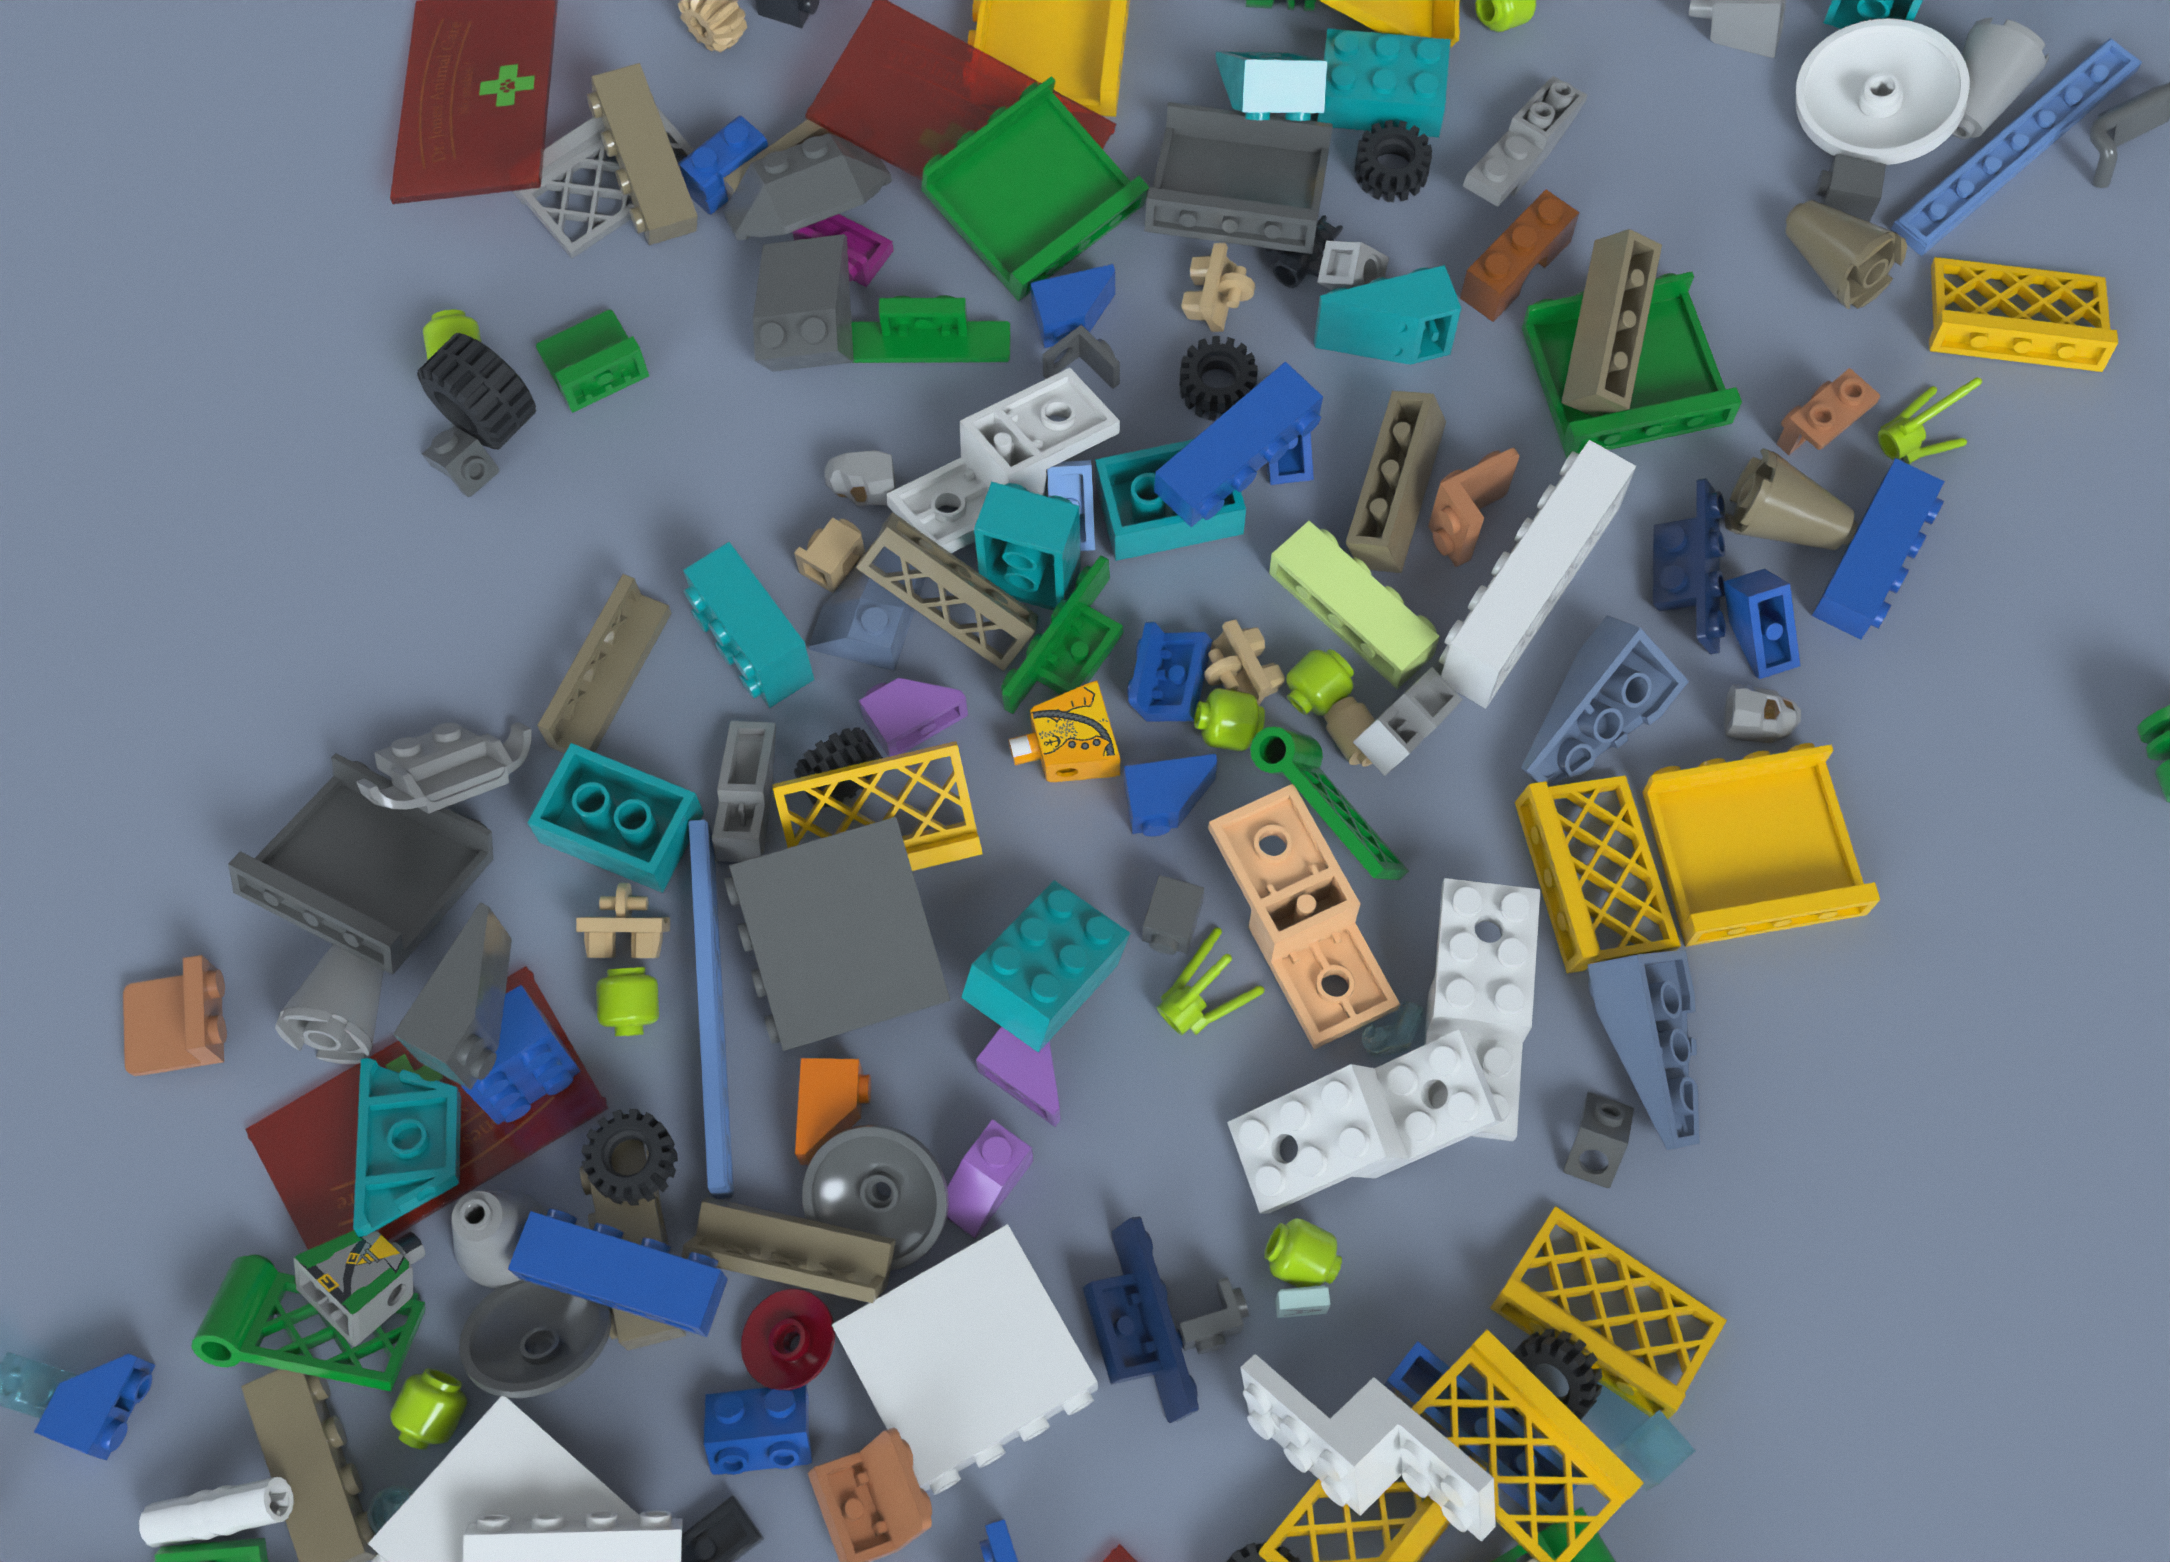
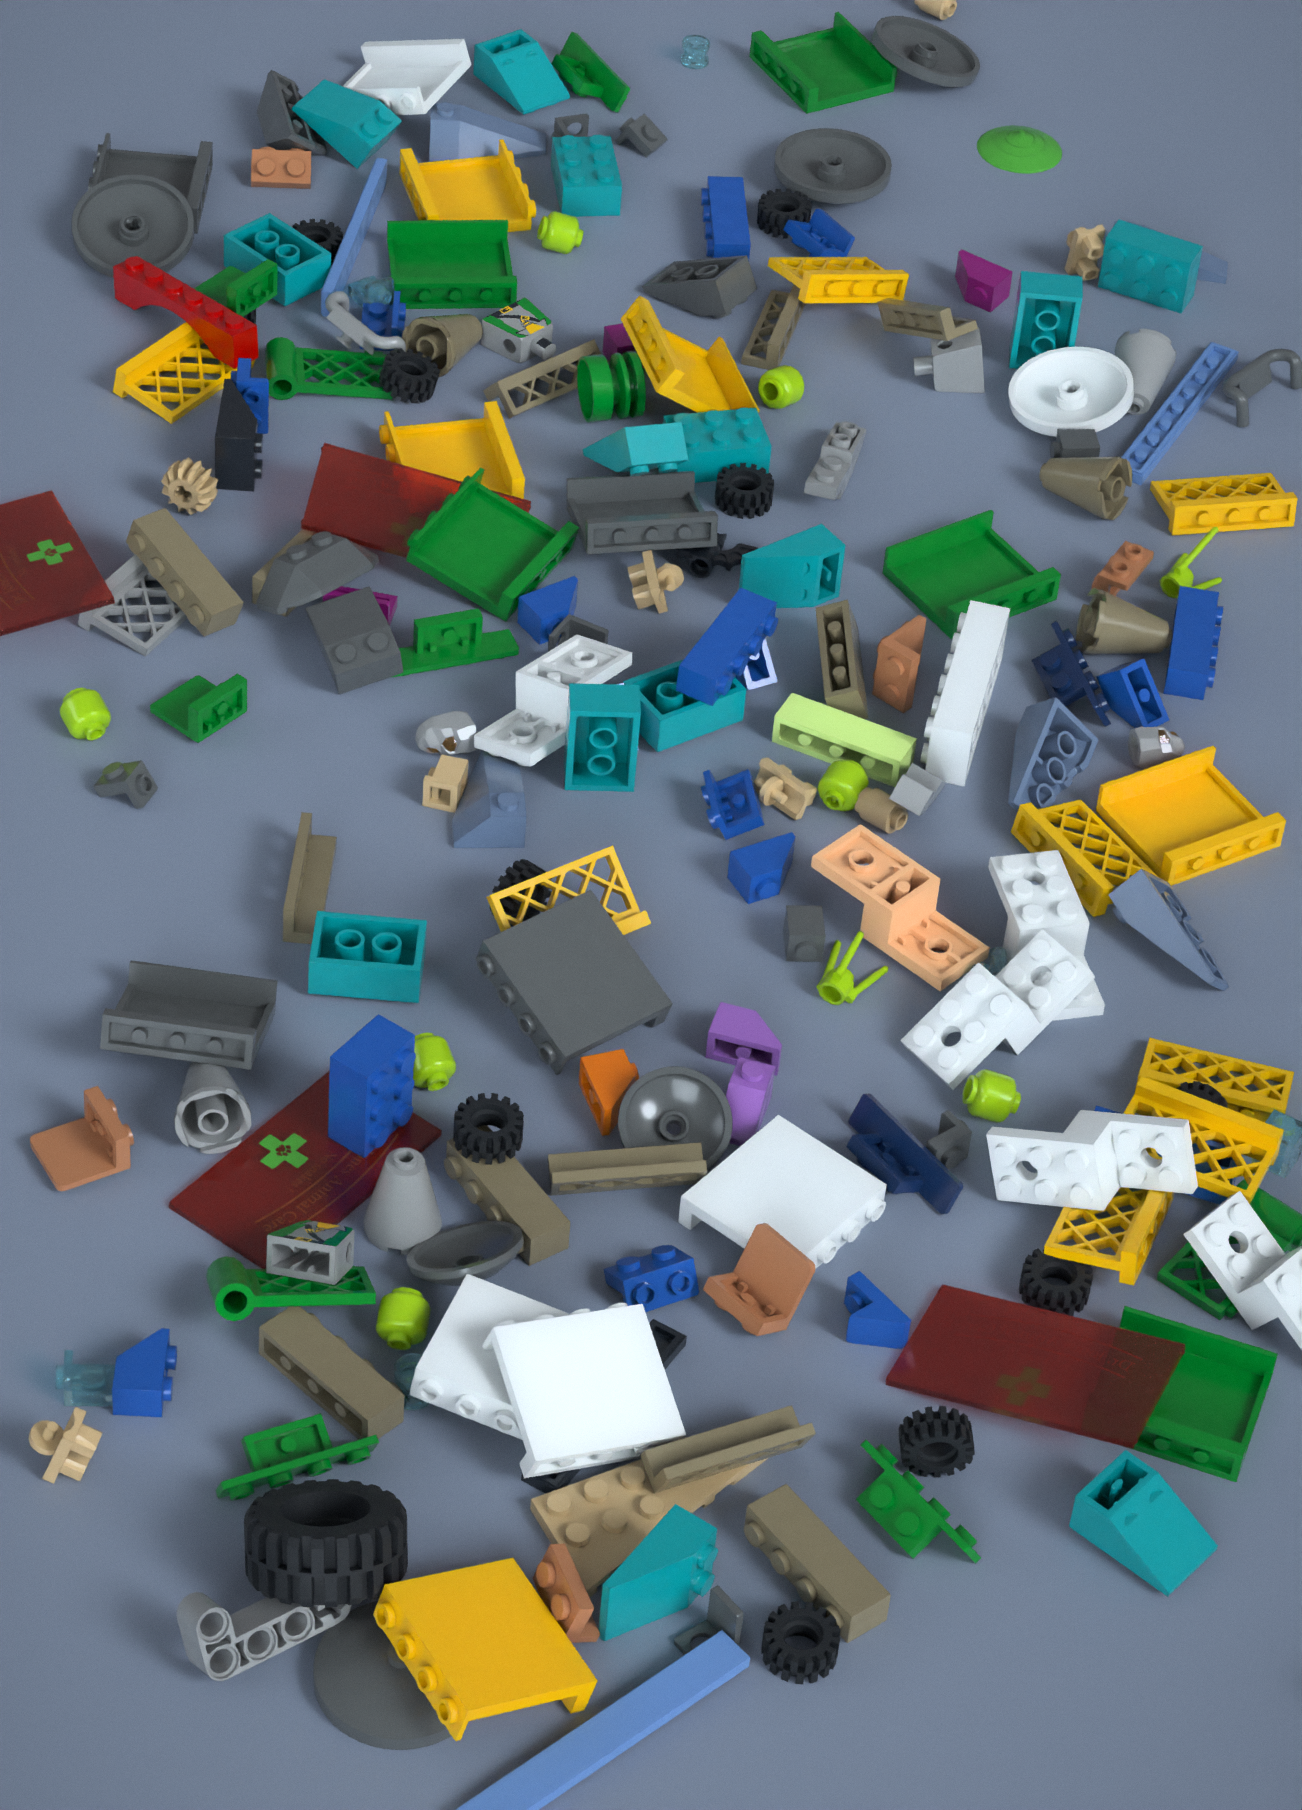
camera: 25 degrees left, 25 degrees down
(216, 1512) = (279, 1400): white axle -> none
(403, 1144) = (305, 1170): teal wing -> none
(445, 767) = (218, 951): light grey plate -> none
(460, 1009) = (357, 1017): dark grey slope -> none
(477, 390) = (130, 725): black tyre -> none
(601, 931) = (408, 1014): tan hips -> none
(619, 1272) = (516, 1191): blue brick -> none
(711, 1012) = (492, 1050): medium blue tile -> none
(717, 158) = (245, 563): blue brick -> none
(744, 791) = (452, 930): light grey slope -> none
(747, 626) = (411, 826): teal brick -> none
(770, 1333) = (650, 1219): dark red dish -> none
(910, 712) = (556, 850): medium lavender slope -> none
(957, 578) = (553, 767): dark tan fence -> none
(1045, 965) = (732, 967): teal brick -> none
(1070, 737) = (680, 851): torso -> none
(1071, 645) = (653, 800): green bracket -> none
(1216, 357) = (668, 629): black tyre -> none
(1229, 719) = (790, 814): lime head -> none
(1299, 759) = (843, 815): green piece -> none
(1302, 1301) = (1005, 1116): light aqua tile -> none
(1350, 265) = (748, 538): light grey brick -> none
(1531, 239) = (865, 518): dark orange arch -> none
(1605, 1128) = (1162, 983): dark grey bracket -> none
(1612, 323) = (952, 540): dark tan brick -> none

